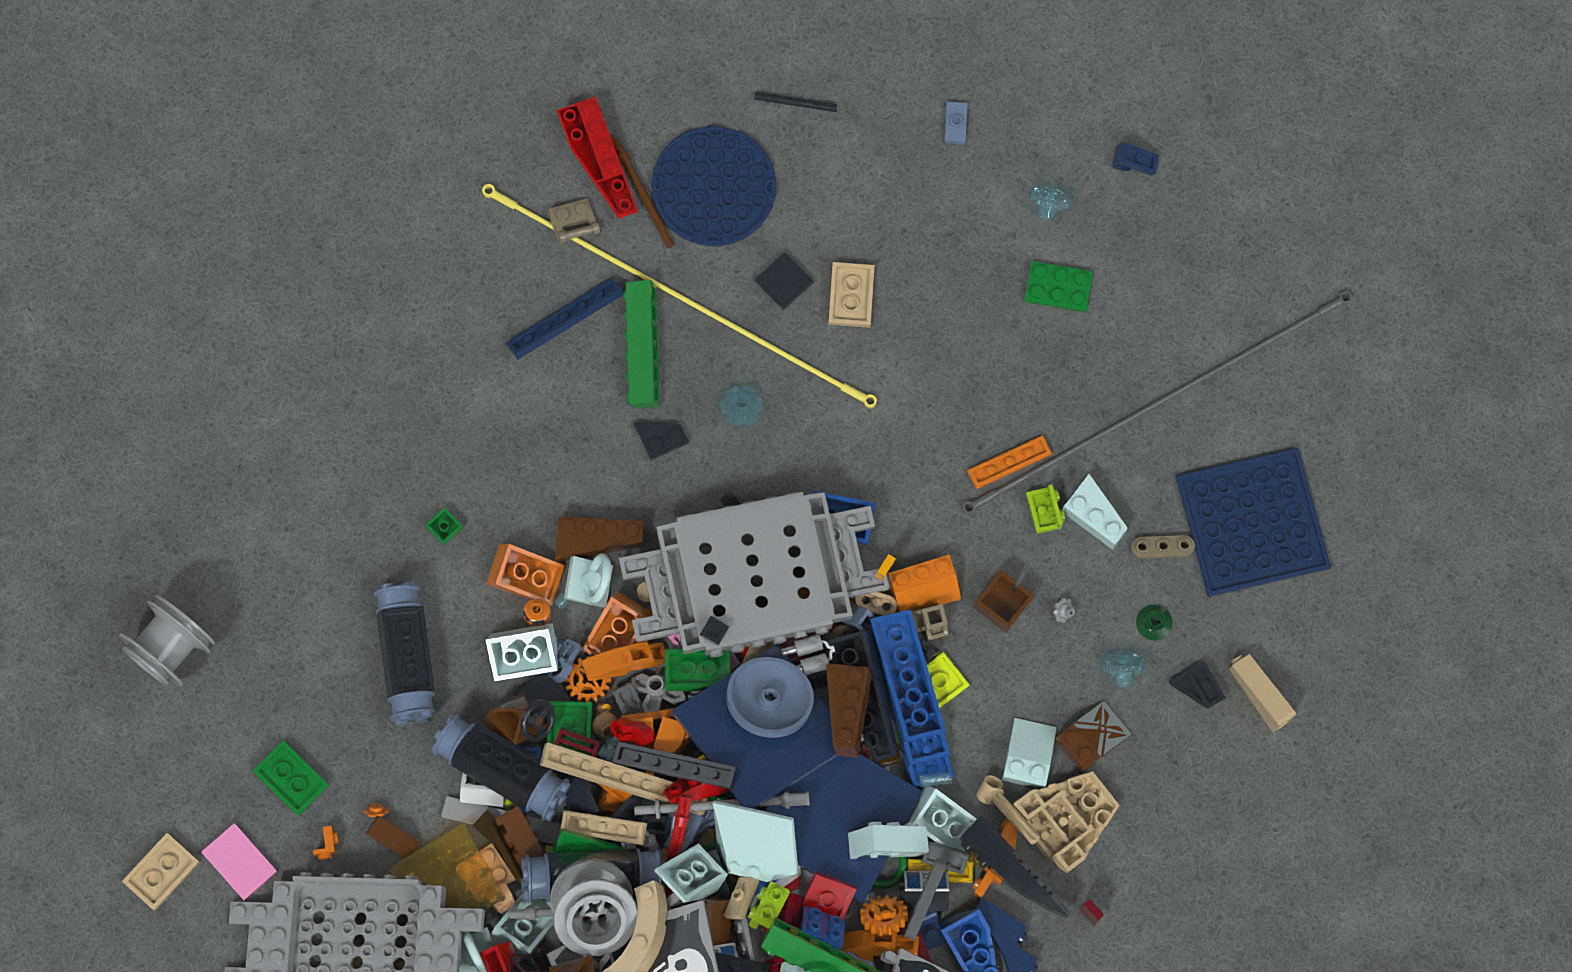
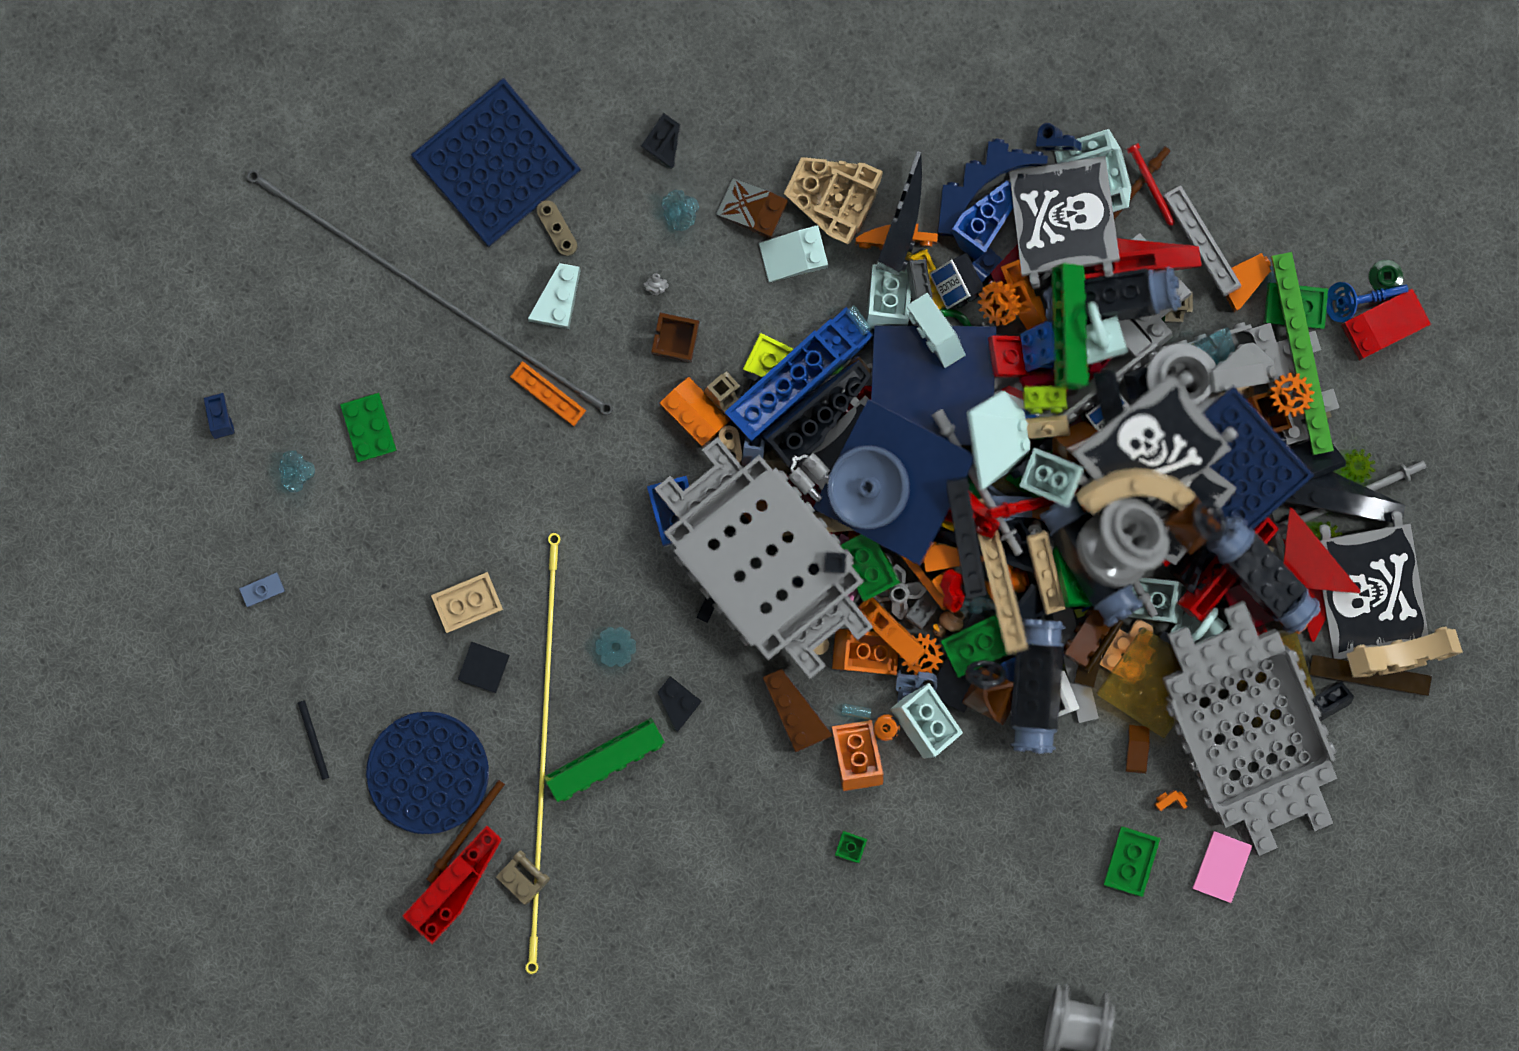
camera: 115 degrees left, 10 degrees up
(160, 871) = (1264, 927): tan plate -> none
(376, 809) = (1121, 775): orange plant -> none
(405, 653) = (979, 819): black brick -> none
(564, 318) = (614, 839): dark blue plate -> none
(578, 737) = (984, 633): dark red tile -> none
(589, 580) = (837, 697): light aqua tile -> none
(848, 704) = (839, 419): reddish brown wedge -> none
(885, 567) = (704, 447): light orange tile -> none
(925, 899) = (970, 274): dark grey beam -> none
(992, 793) = (844, 269): tan axle -> none
(1045, 509) = (575, 342): lime bracket -> none
(1091, 912) = (904, 136): dark red tile -> none
(1145, 625) = (626, 214): dark green piece -> none
(1262, 692) = (644, 84): tan slope -> none

